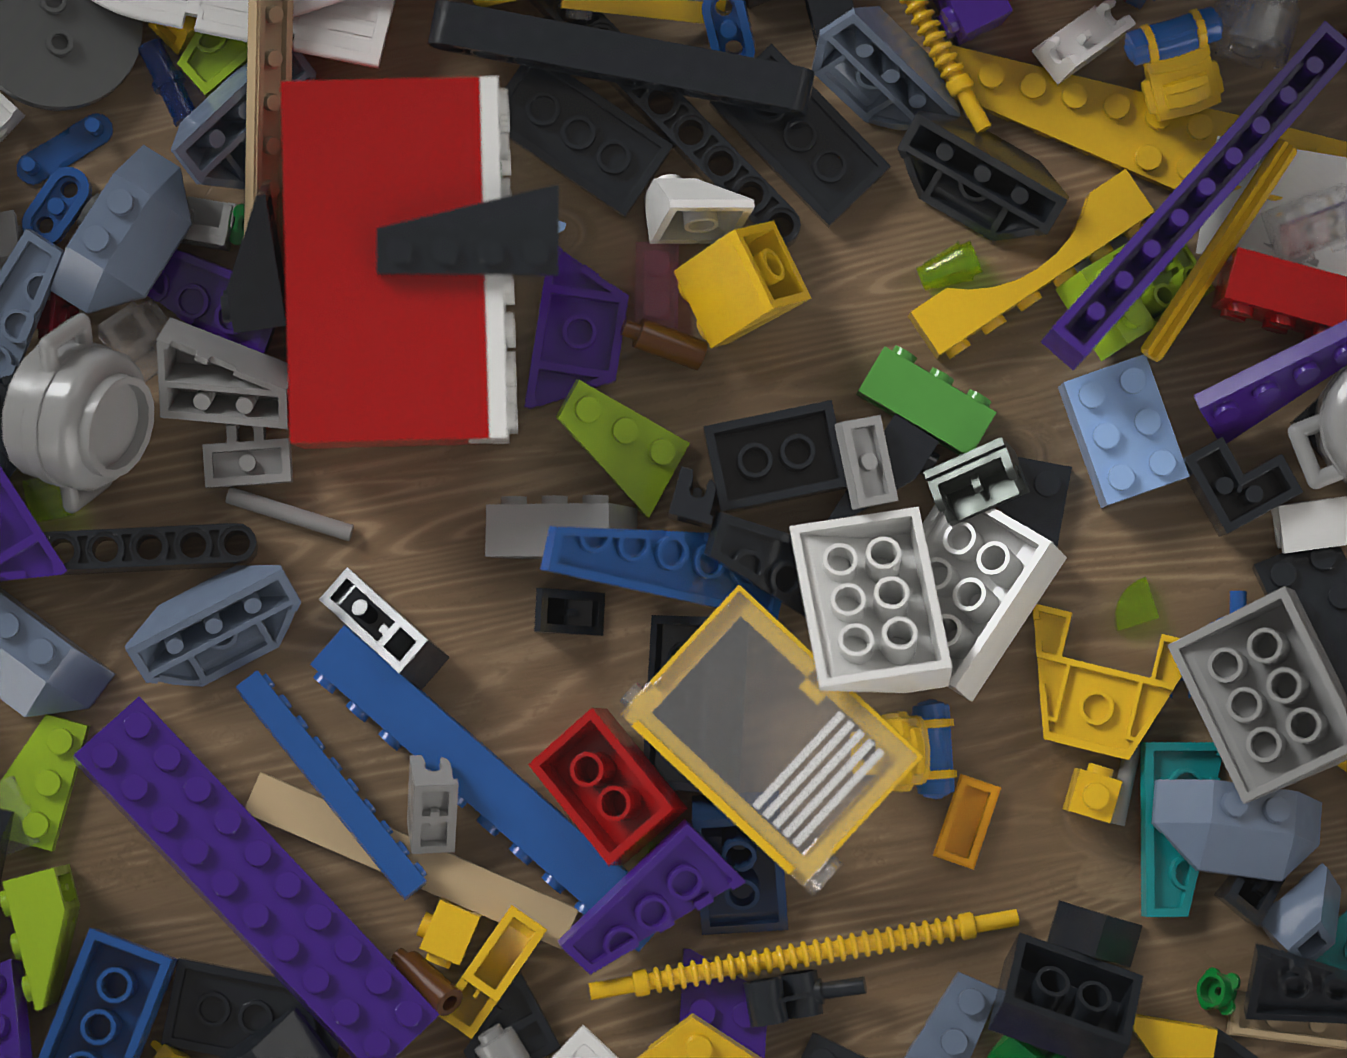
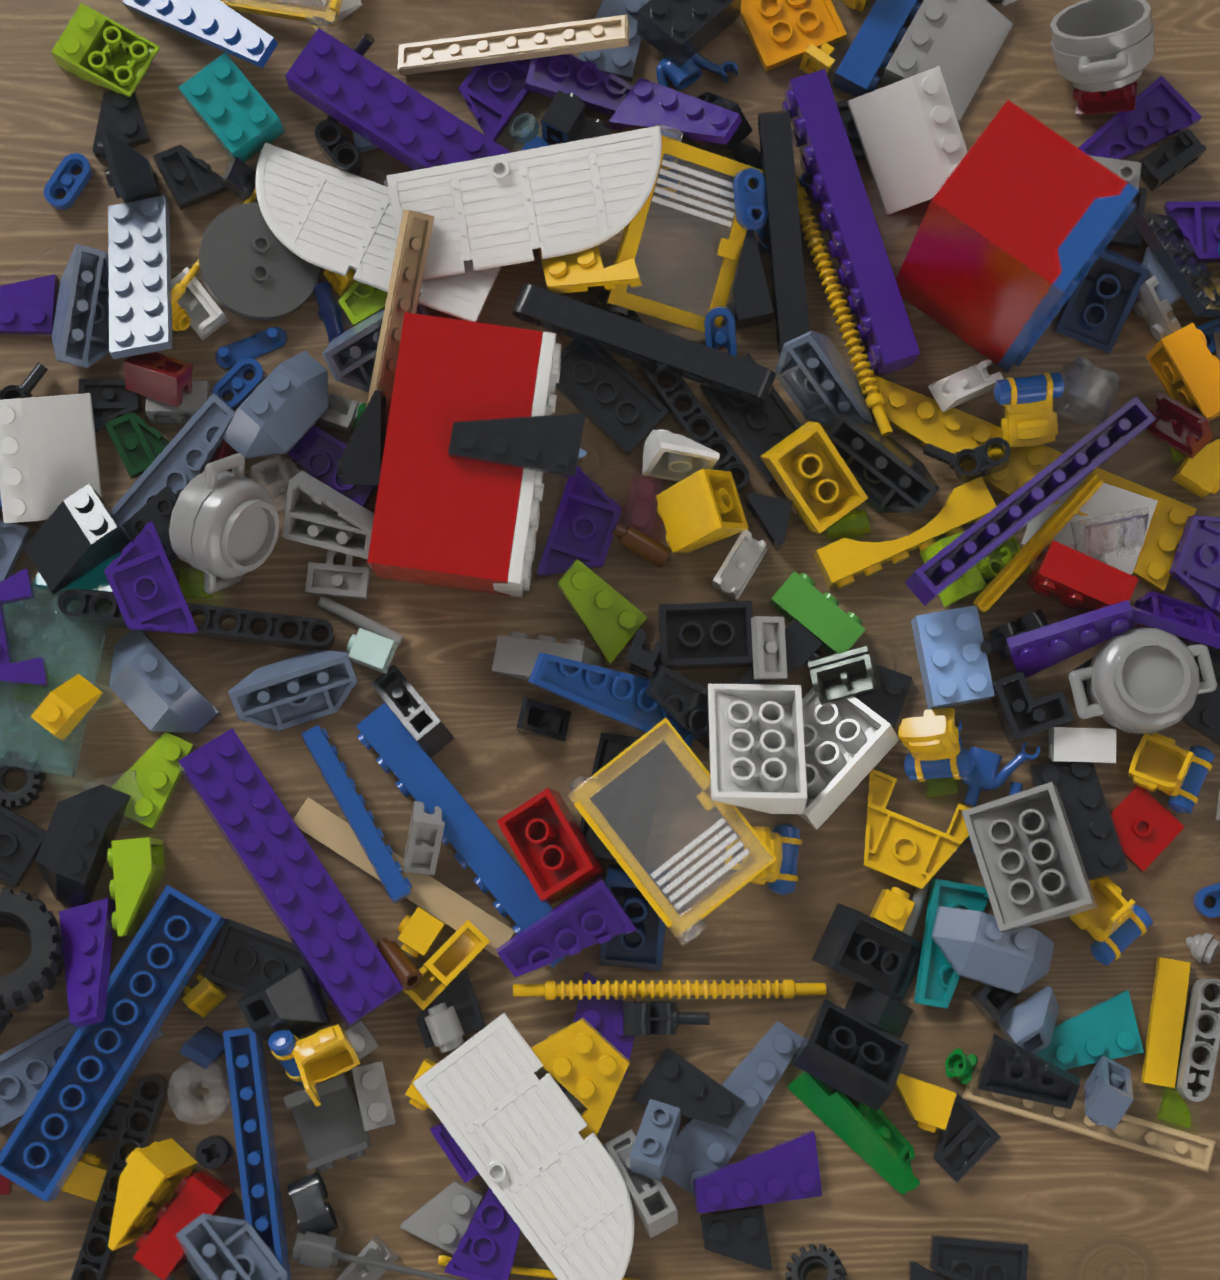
camera: 10 degrees right, 5 degrees down
(312, 554) = (371, 650): none -> light aqua brick
(807, 349) = (739, 565): none -> white hinge
(840, 271) = (771, 515): none -> black slope
(891, 209) = (814, 477): none -> yellow brick
(966, 821) = (800, 914): light orange tile -> none
(1069, 858) = (869, 952): none -> black slope
(1117, 561) = (934, 747): none -> yellow piece
(1118, 139) = (979, 455): none -> black beam
(1186, 575) = (986, 770): none -> blue piece
(1216, 369) = (999, 634): none -> black beam

